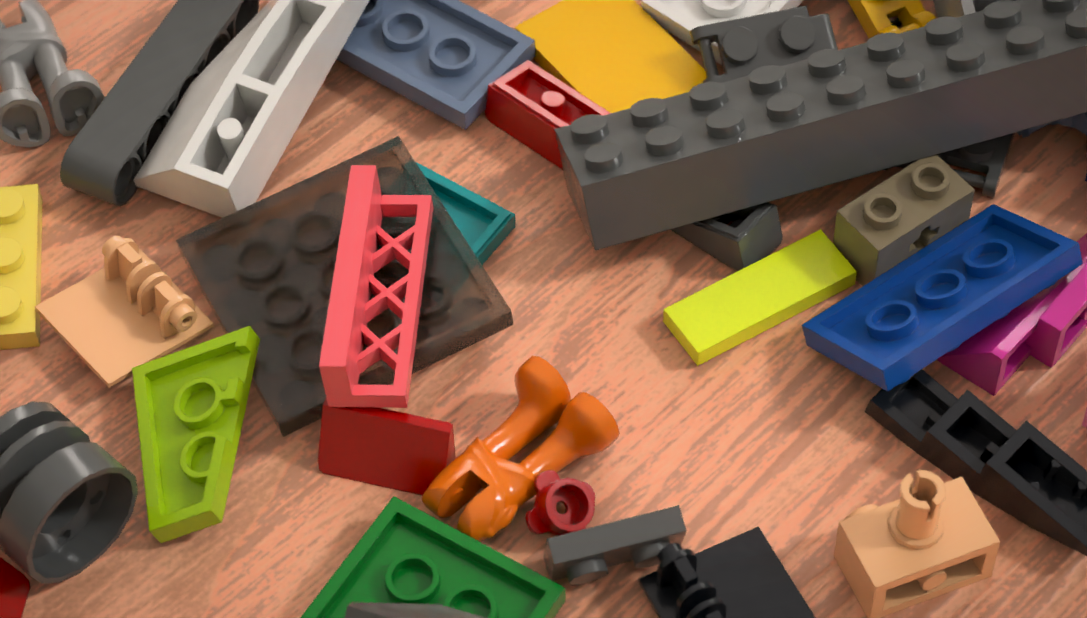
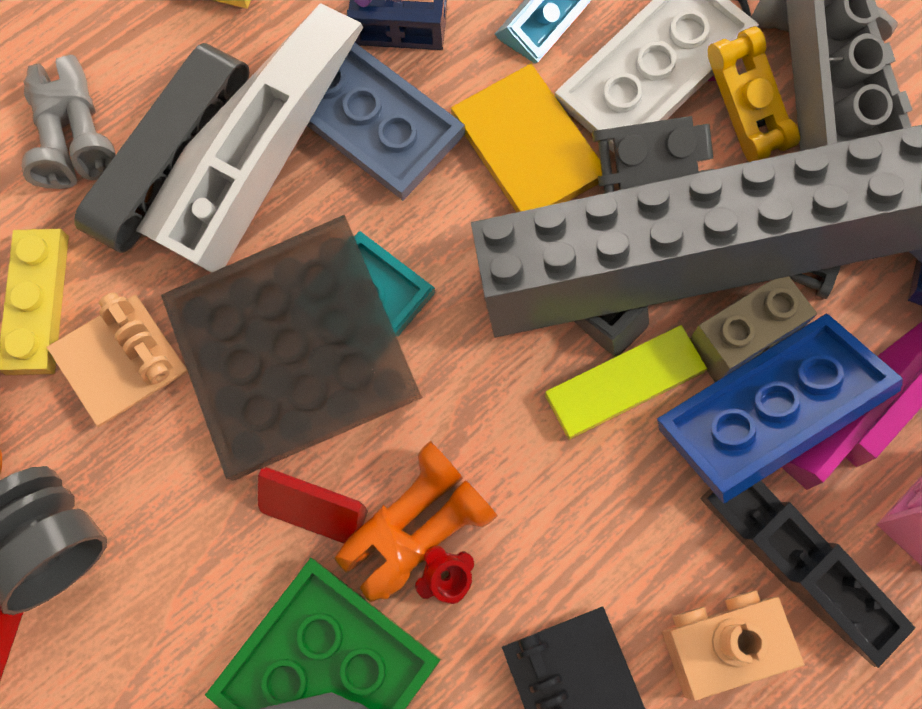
camera: 10 degrees right, 20 degrees up
(191, 430) = (156, 478): lime wing -> none
(351, 290) = (288, 371): coral fence -> none
(534, 103) = (466, 188): red slope -> none
(588, 552) = (505, 617): dark grey plate -> none

